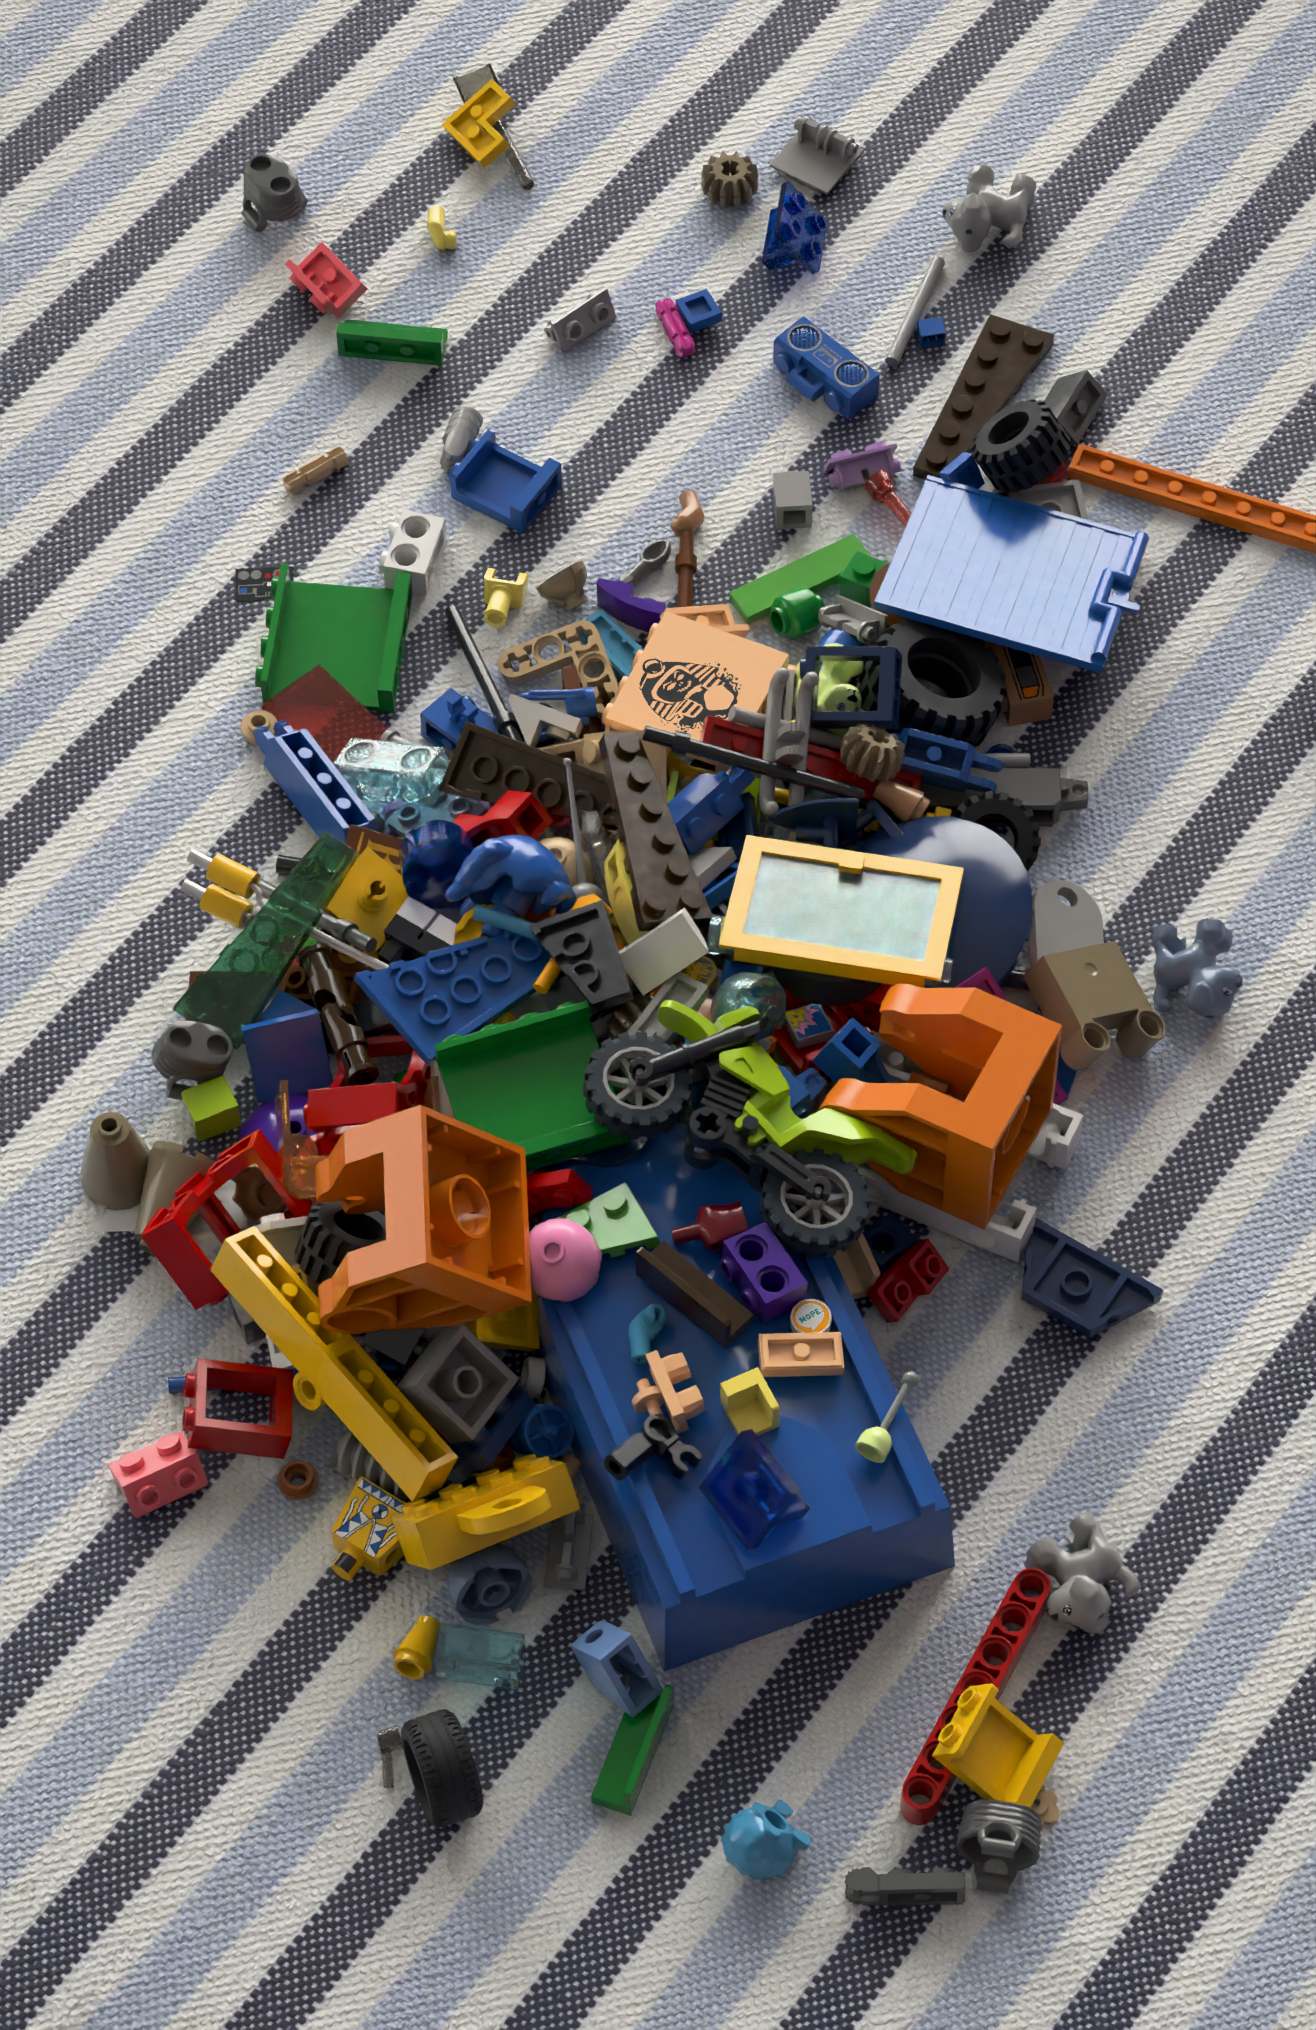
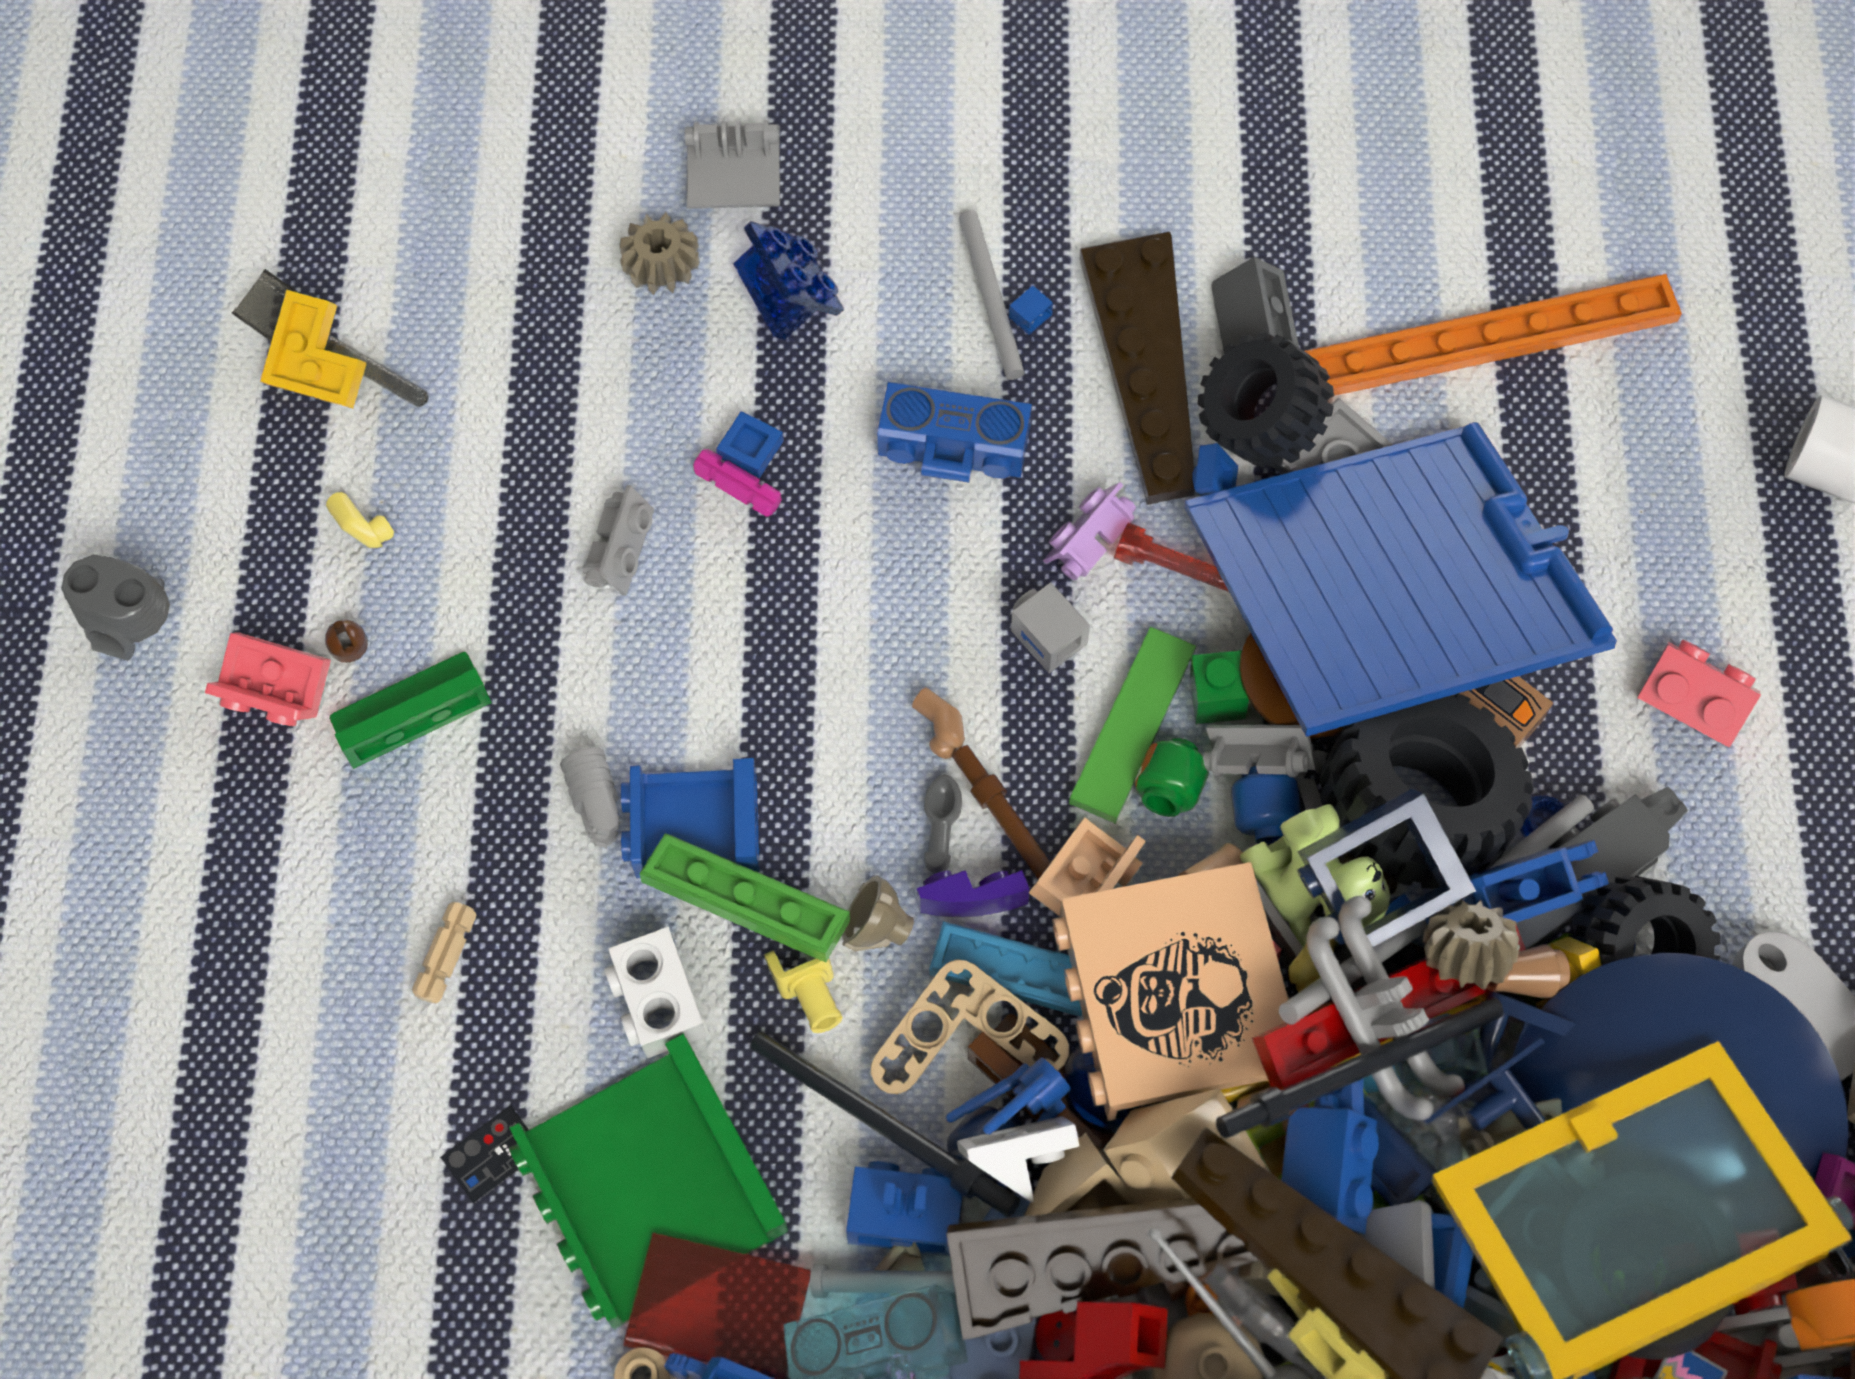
camera: 35 degrees left, 10 degrees up
(392, 287) = (356, 635): none -> reddish brown hinge
(500, 531) = (745, 897): none -> bright green tile
(984, 207) = (983, 118): light grey animal -> none
(1157, 750) = (1700, 693): none -> coral bracket

